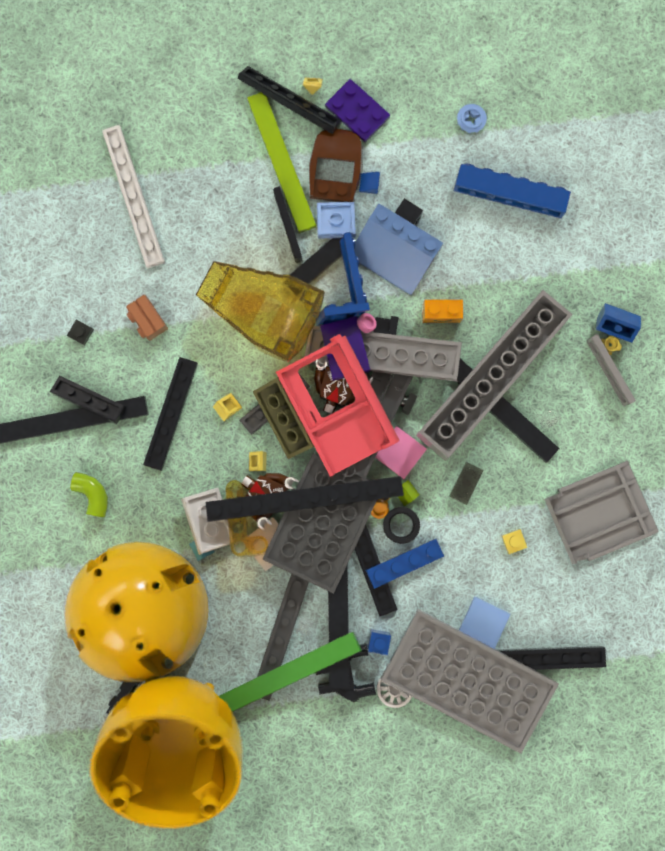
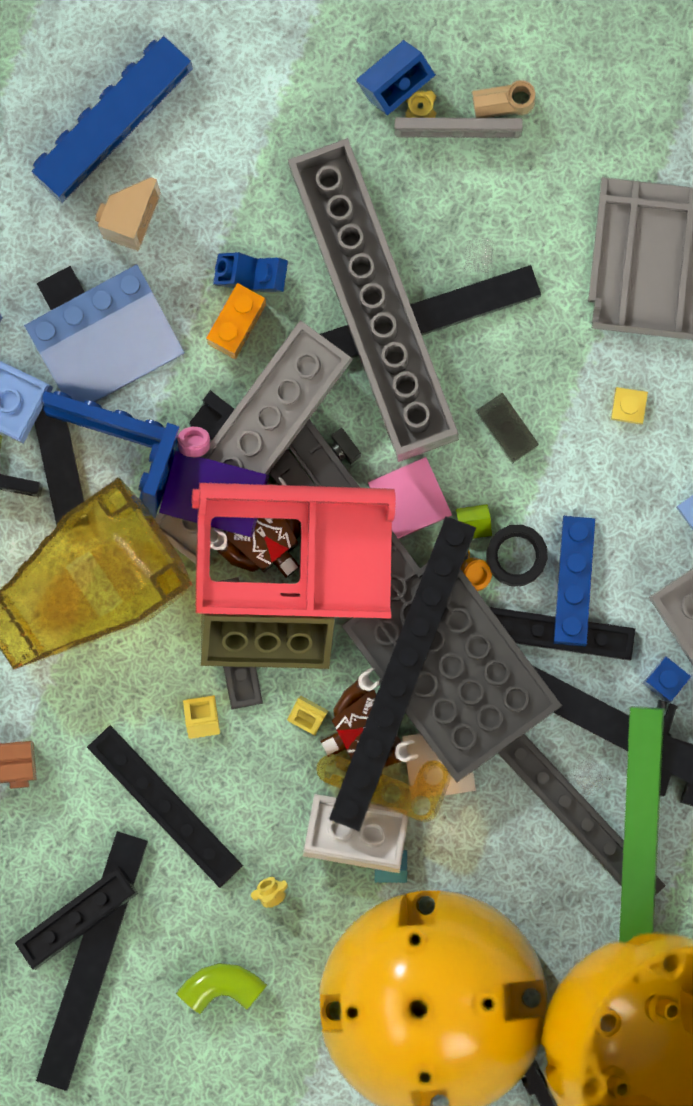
camera: 60 degrees left, 0 degrees up
(154, 492) = (270, 892): none -> light yellow plate
(467, 225) = (128, 213): none -> tan slope
(472, 306) = (250, 272): none -> blue slope
(637, 384) = (499, 101): none -> tan piece

